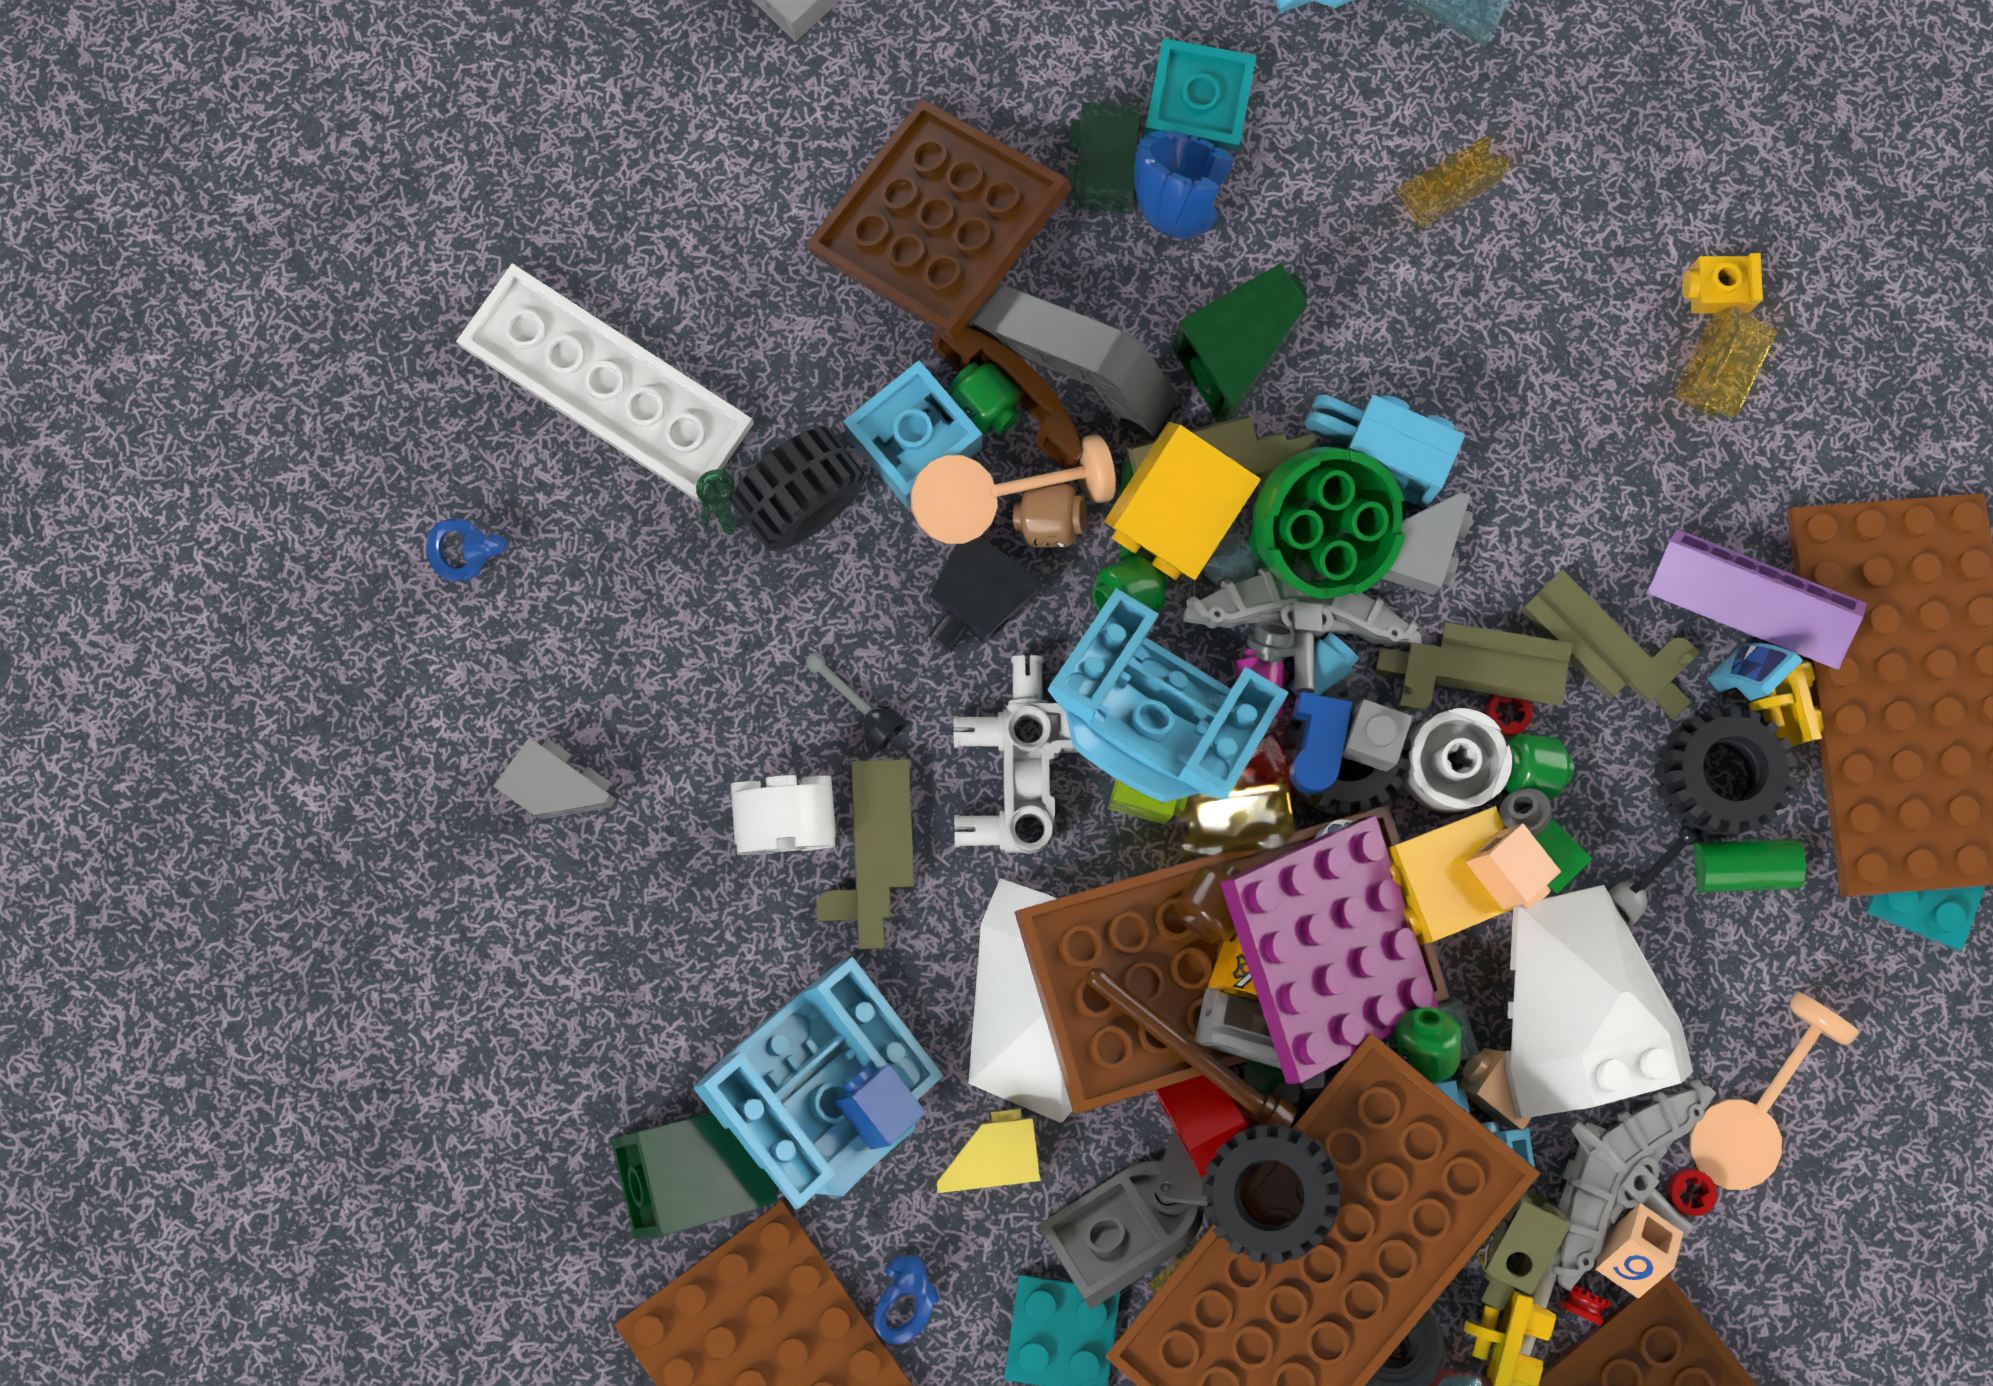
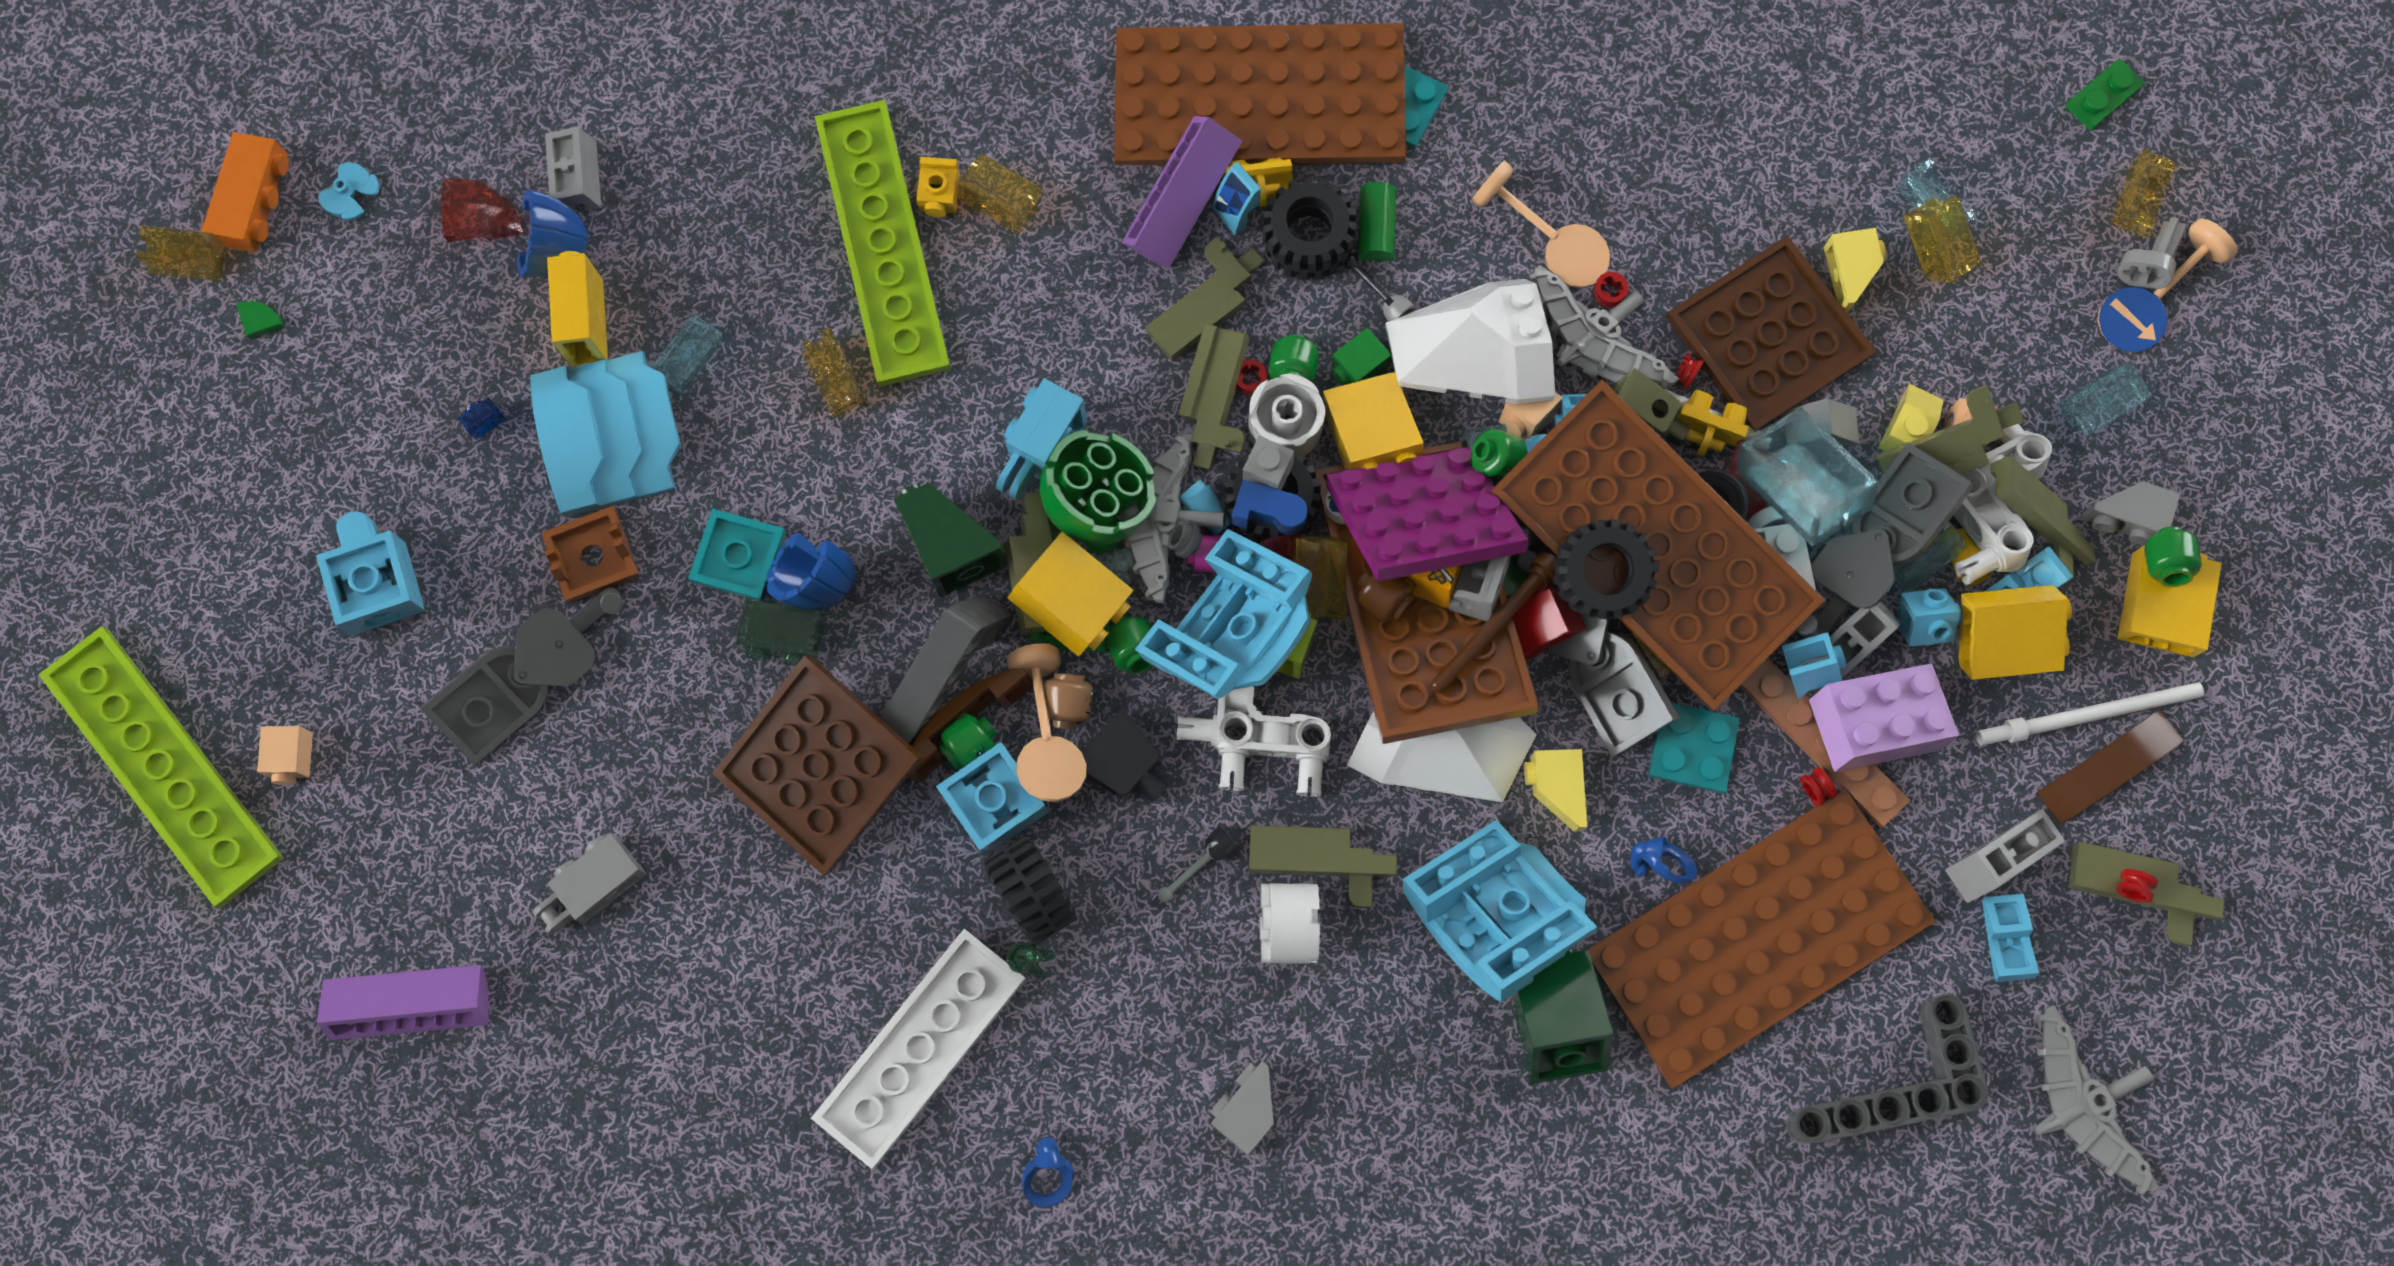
camera: 80 degrees left, 5 degrees down
(878, 1105) = (1519, 865): brick -> none
(1428, 545) = (1117, 416): light grey slope -> none
(1514, 868) = (1372, 380): light nougat brick -> none
(1536, 819) = (1339, 368): dark grey plate -> none
(1638, 222) = (882, 243): none -> lime plate
(1639, 1251) = (1652, 327): light nougat brick -> none

